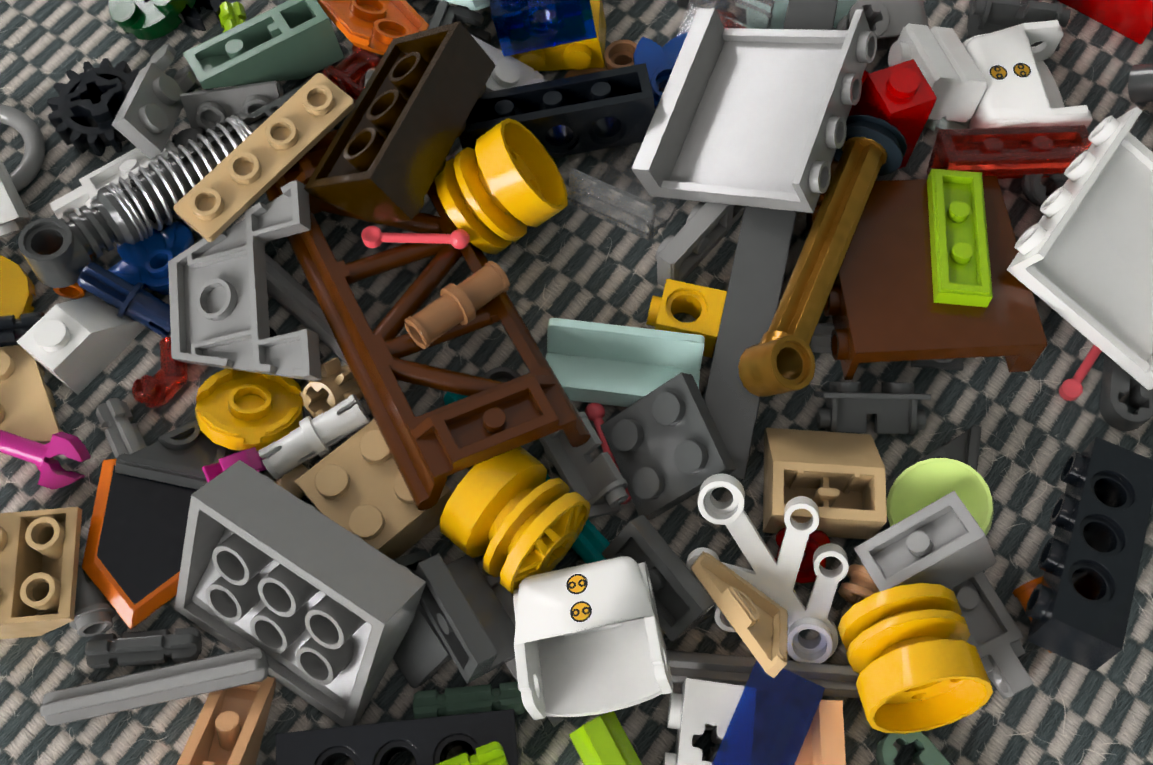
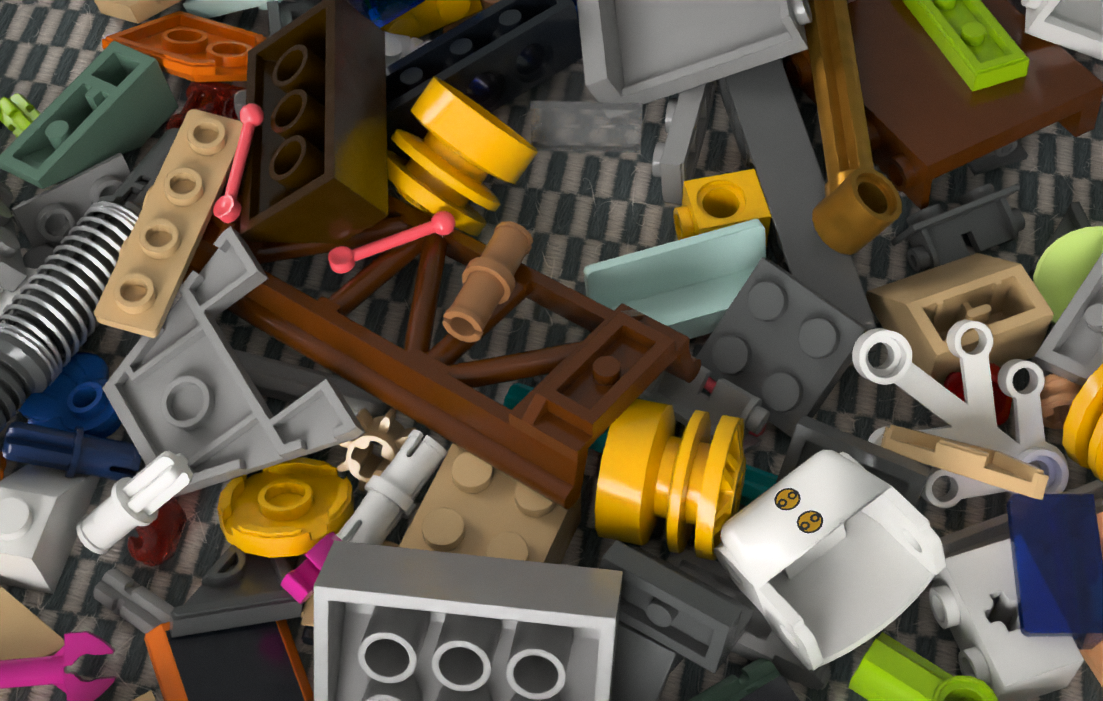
camera: 25 degrees left, 10 degrees down
(146, 357) = (134, 502): none -> white axle
(308, 162) = (227, 206): none -> coral hinge

